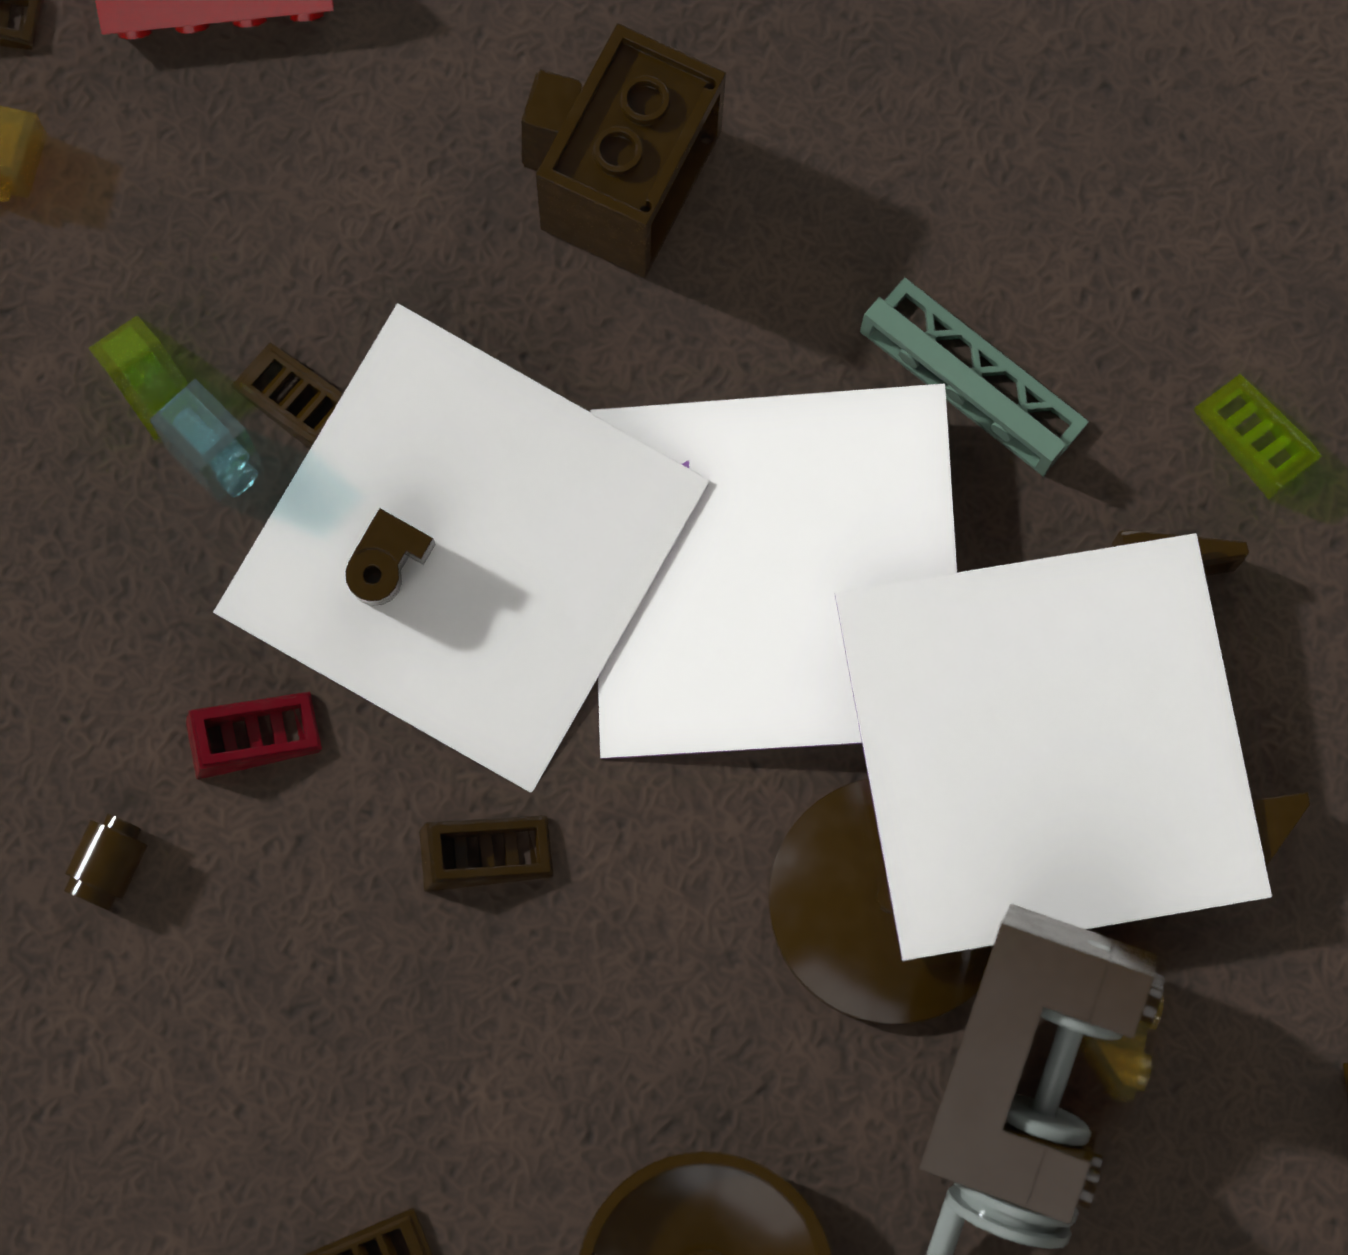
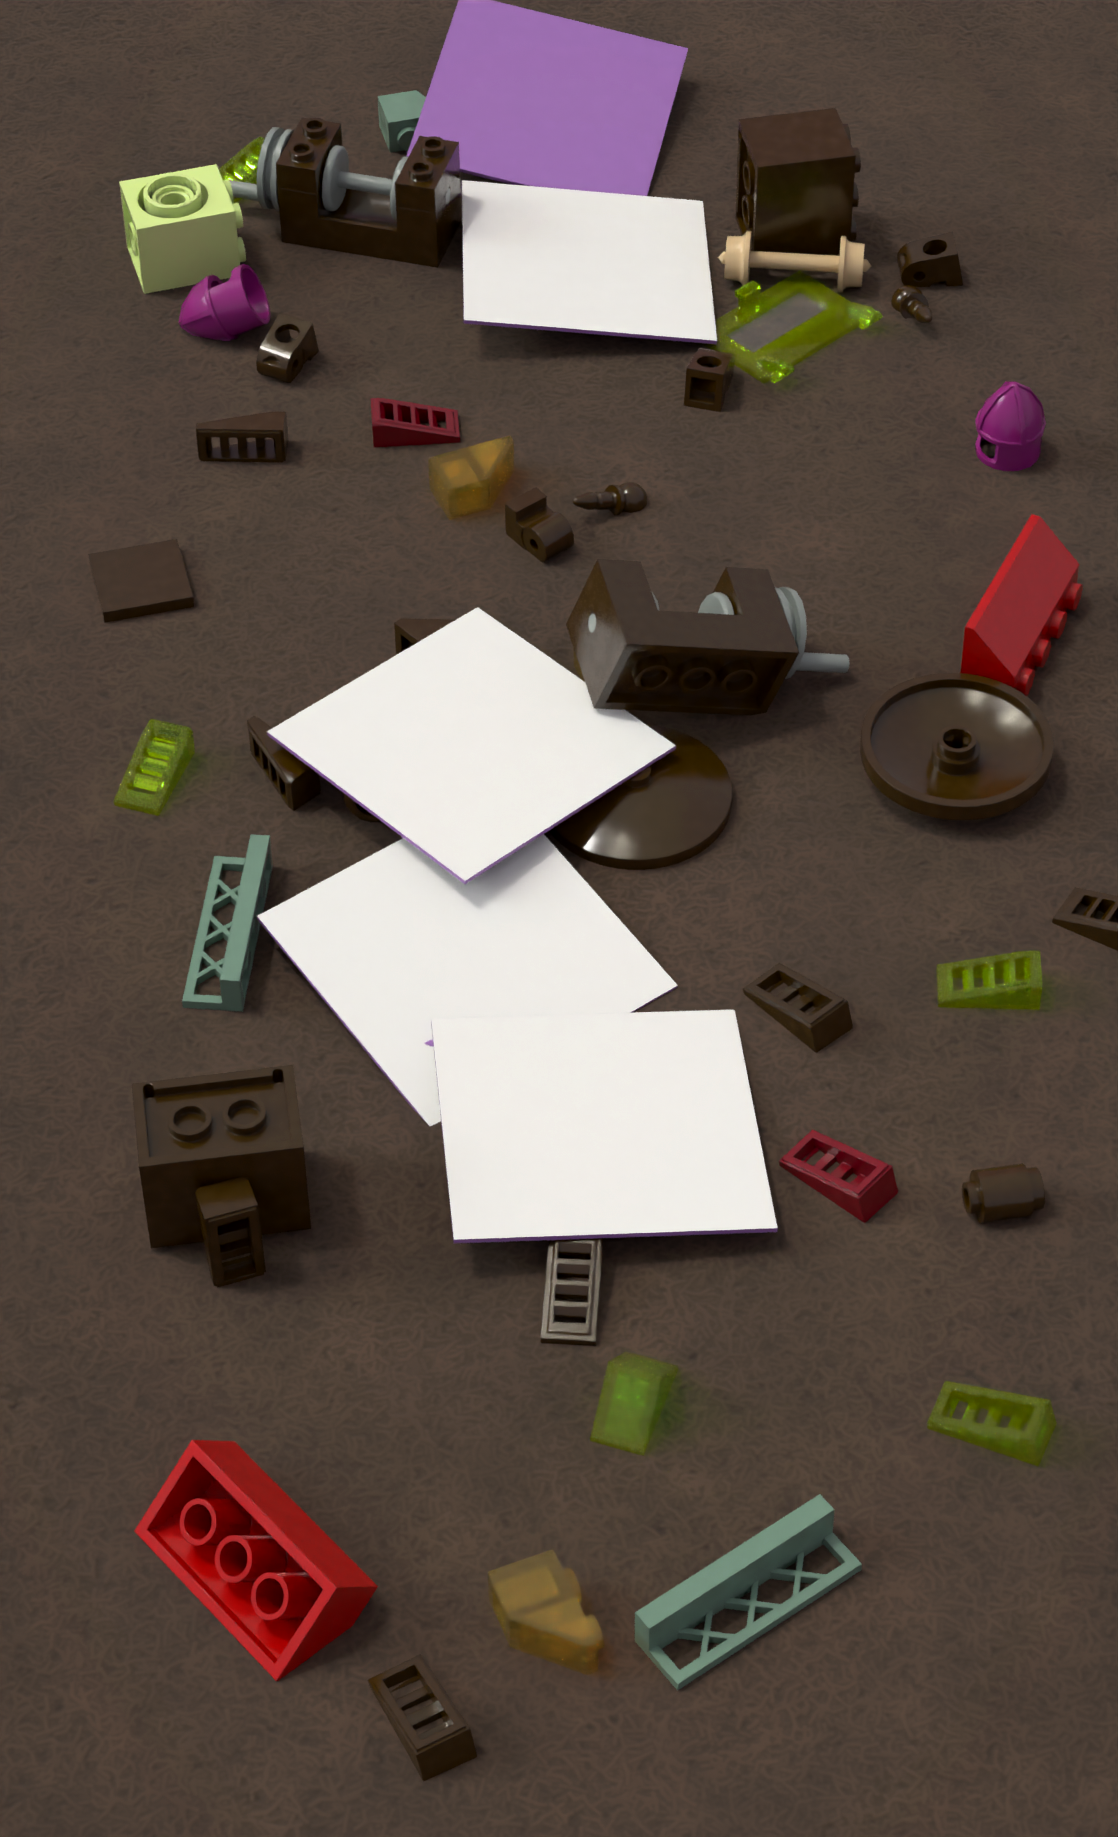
camera: 120 degrees left, 30 degrees down
(208, 442) = (658, 1291): clear light blue brick -> none
(339, 1108) = (1006, 995): none -> clear neon green slope
(378, 559) = (652, 1138): dark brown leg -> none

